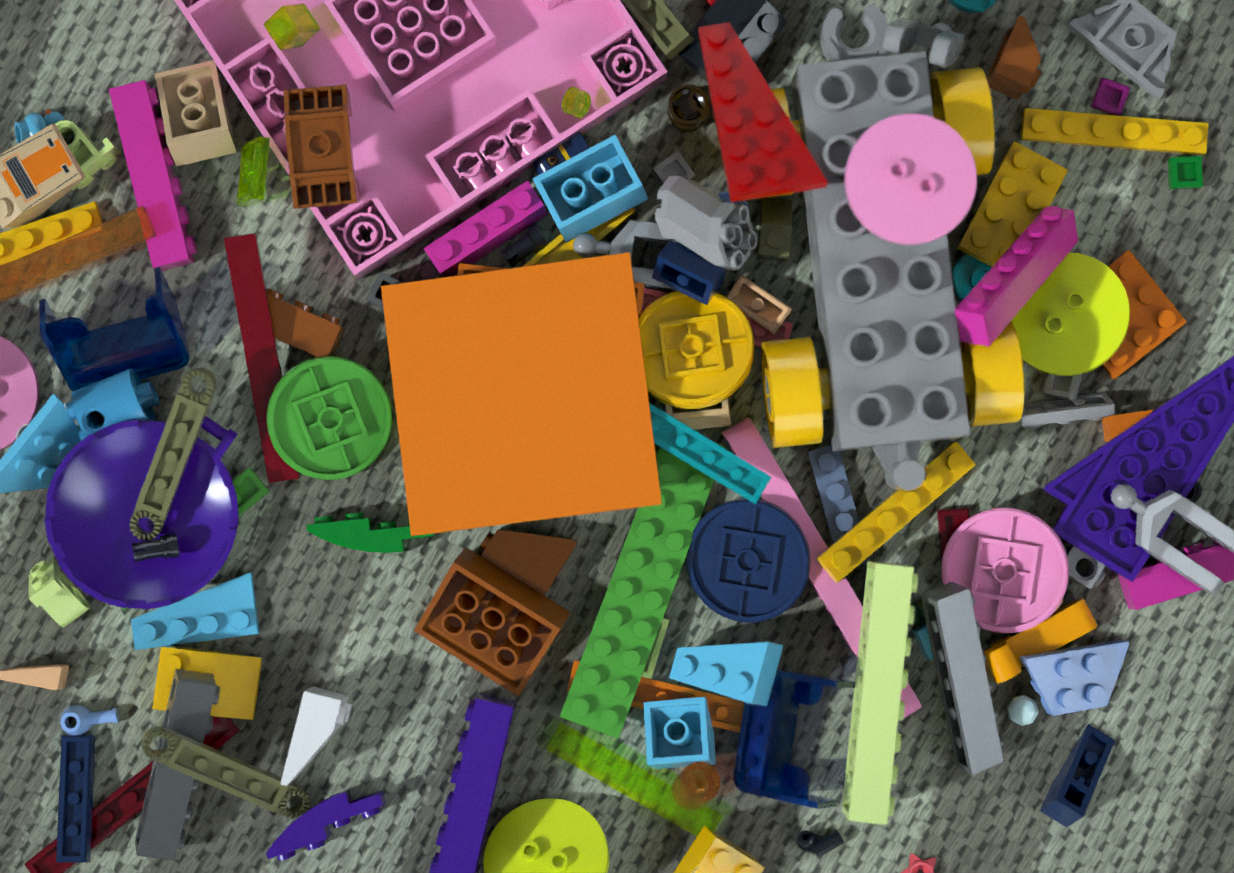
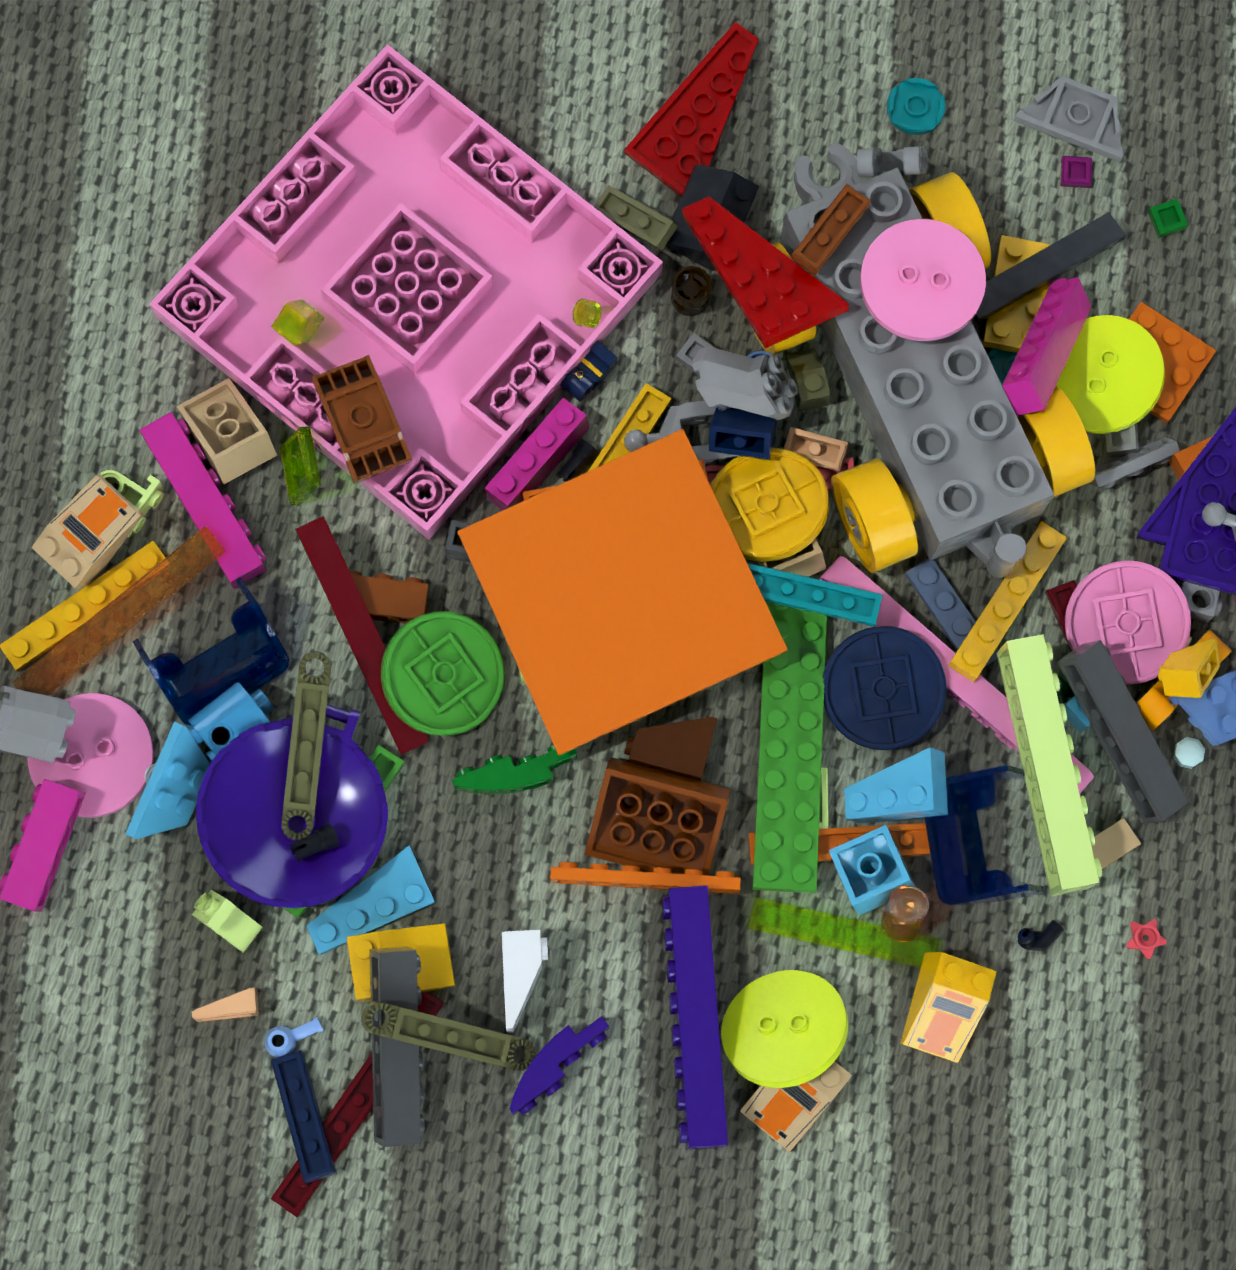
camera: 20 degrees left, 10 degrees down
(34, 123) = (74, 484): medium azure animal -> none
(449, 669) = (631, 877): none -> orange plate
(590, 188) = (625, 387): medium azure brick -> none
(835, 99) = (831, 229): none -> dark orange tile
(918, 775) = (1114, 843): none -> tan tile
(1016, 62) = (980, 161): dark orange slope -> none
(1048, 638) = (1190, 670): none -> yellow slope
(1050, 187) = (1049, 264): none -> black tile
(1114, 131) = (1090, 201): yellow plate -> none

